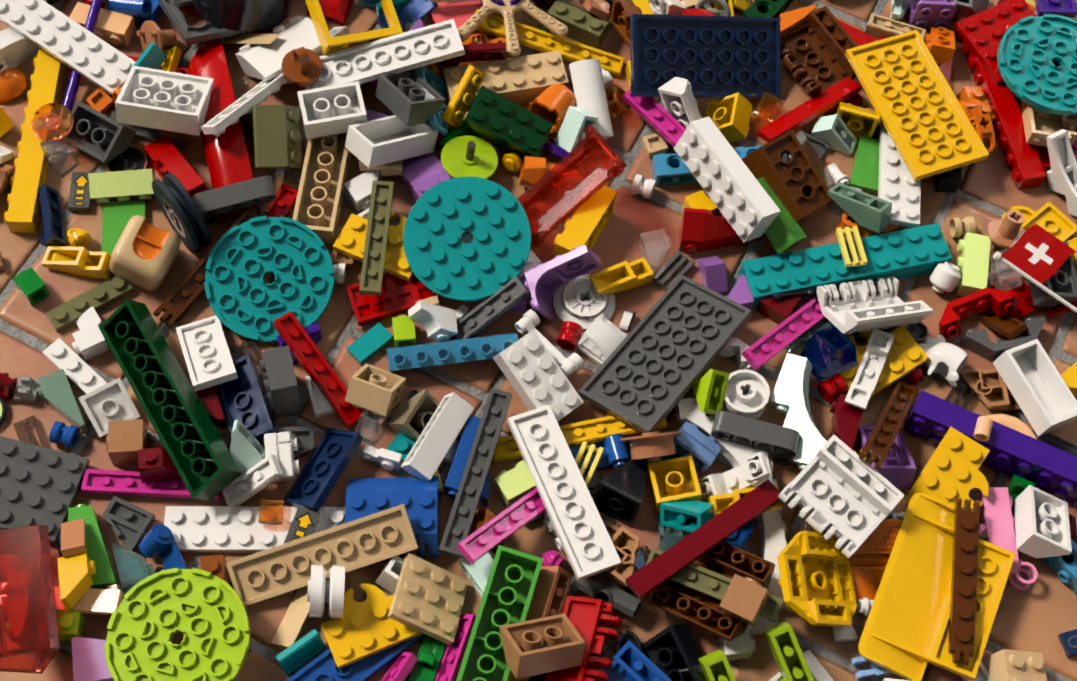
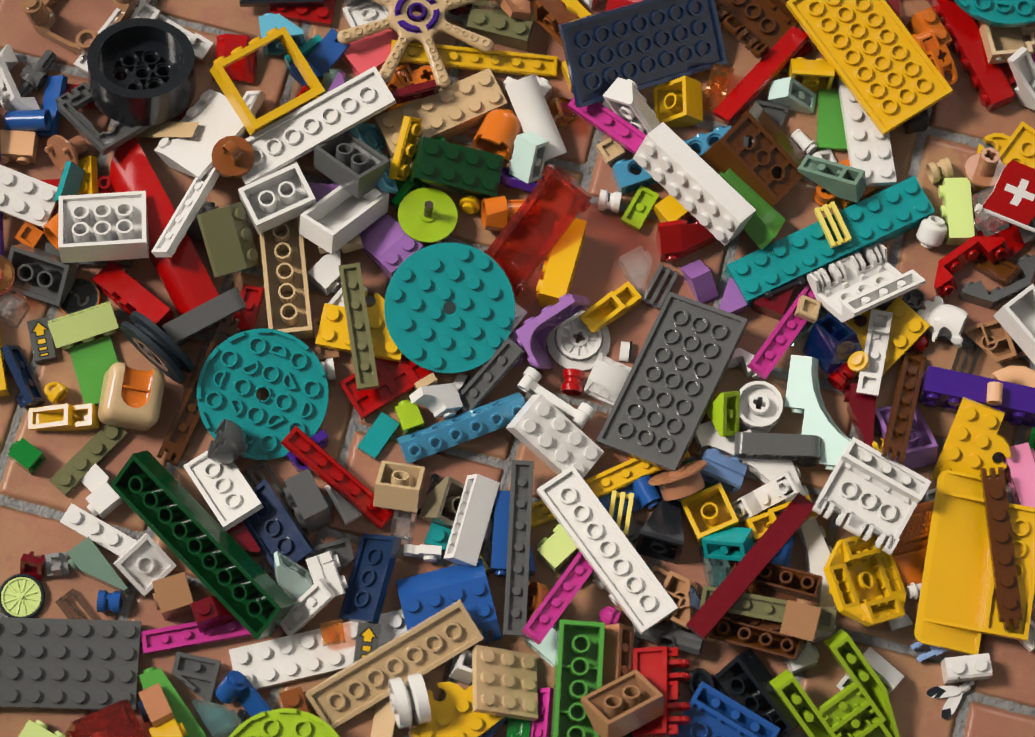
camera: 10 degrees left, 10 degrees up
(222, 313) = (228, 443): none -> dark grey cylinder
(670, 199) = (639, 208): none -> lime plate
(812, 317) = (808, 308): none -> tan tile
(852, 374) = (858, 361): none -> yellow plate

